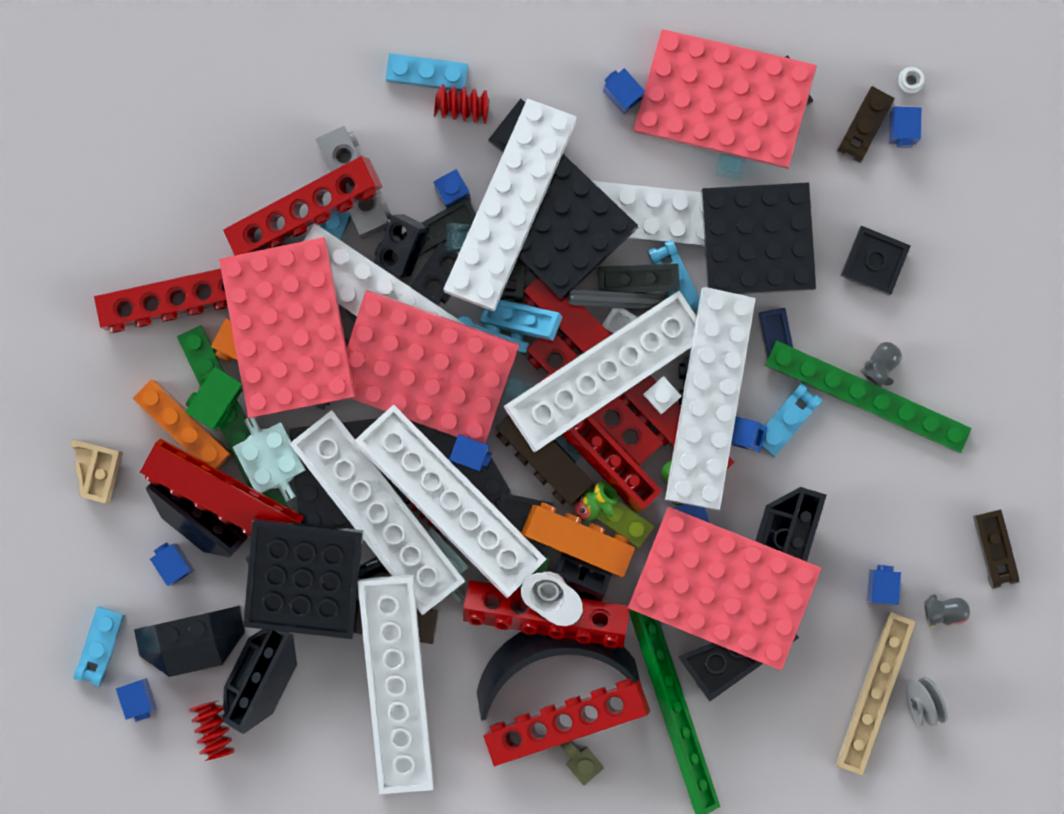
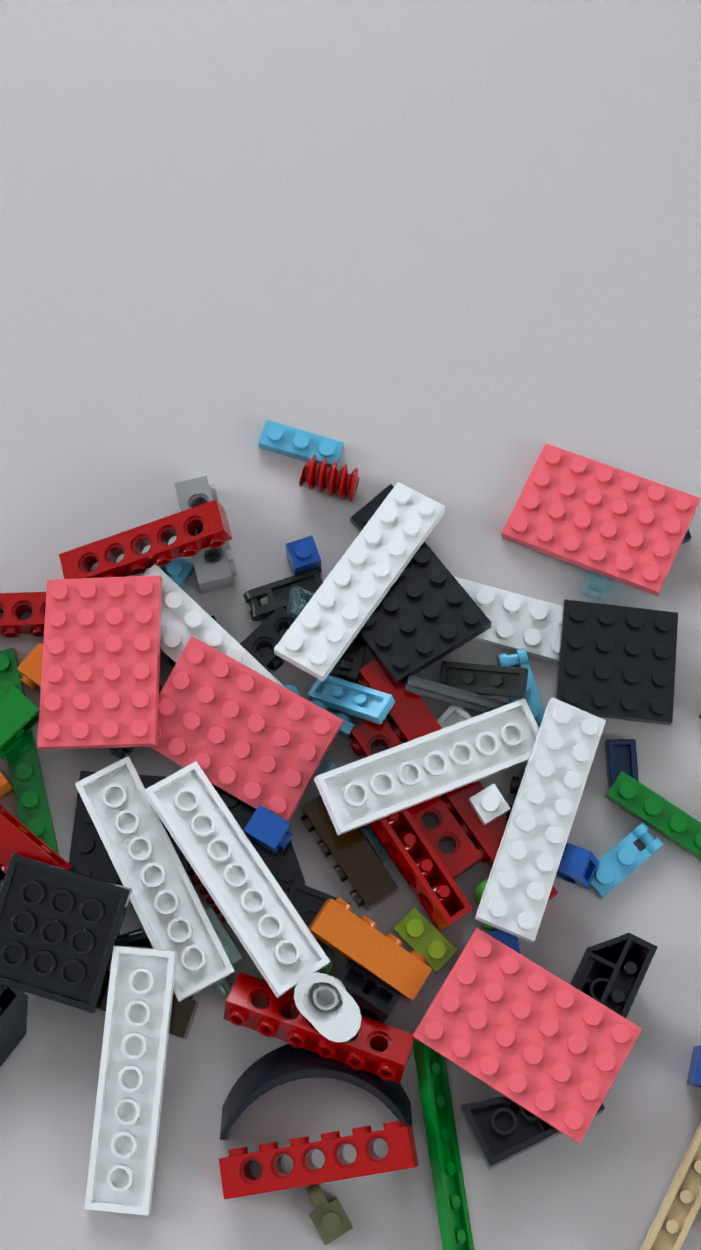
camera: 10 degrees right, 15 degrees down
(269, 458) = (50, 797): light aqua plate -> none
(406, 248) = (245, 606): black brick -> none
(592, 503) = (394, 910): bright green animal -> none
(623, 90) = (497, 493): blue brick -> none

